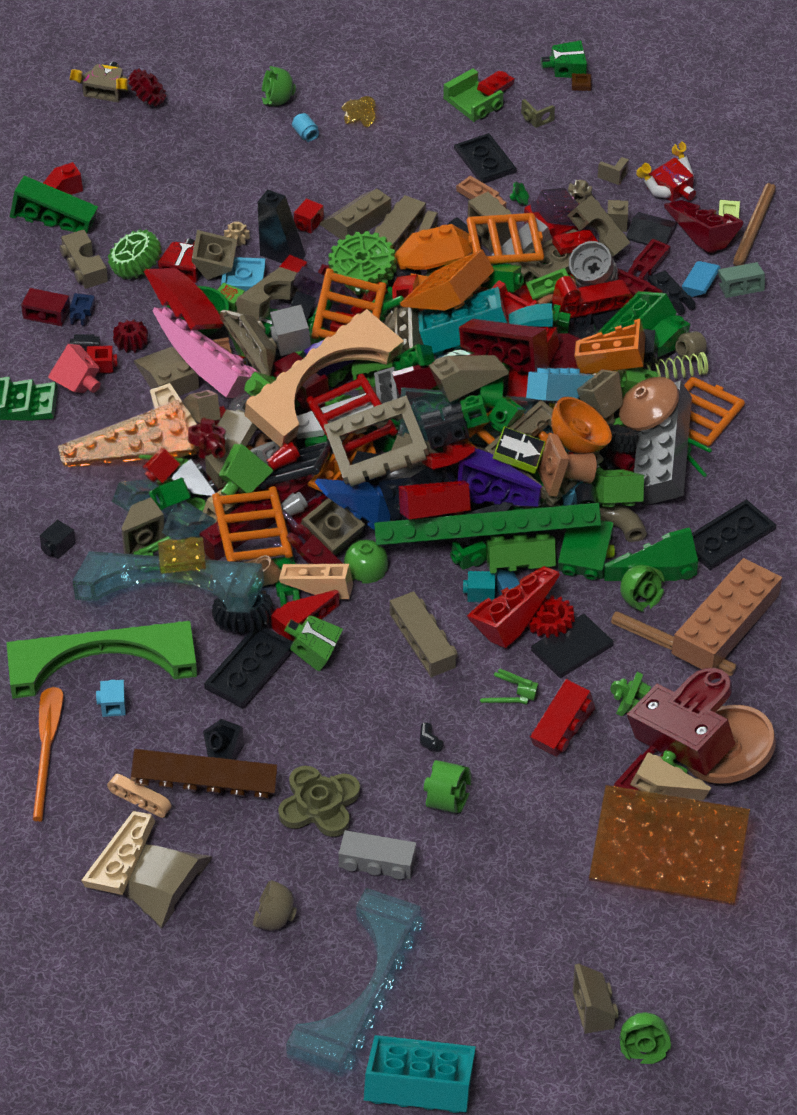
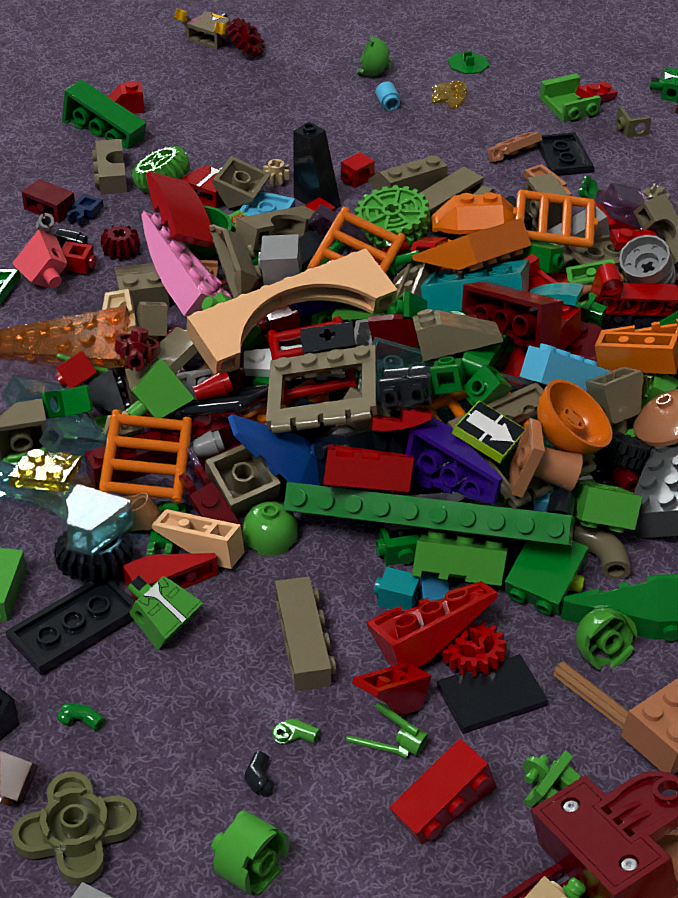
camera: 15 degrees right, 5 degrees down
(66, 336) = (46, 223): none -> light grey pin
(287, 726) = (82, 712): none -> green arm
(364, 70) = (468, 63): none -> green piece
(364, 397) = (327, 338): none -> black brick
(438, 158) = (512, 145): none -> nougat hinge
(441, 703) = (293, 730): none -> bright green arm
(508, 655) = (398, 686): none -> red slope

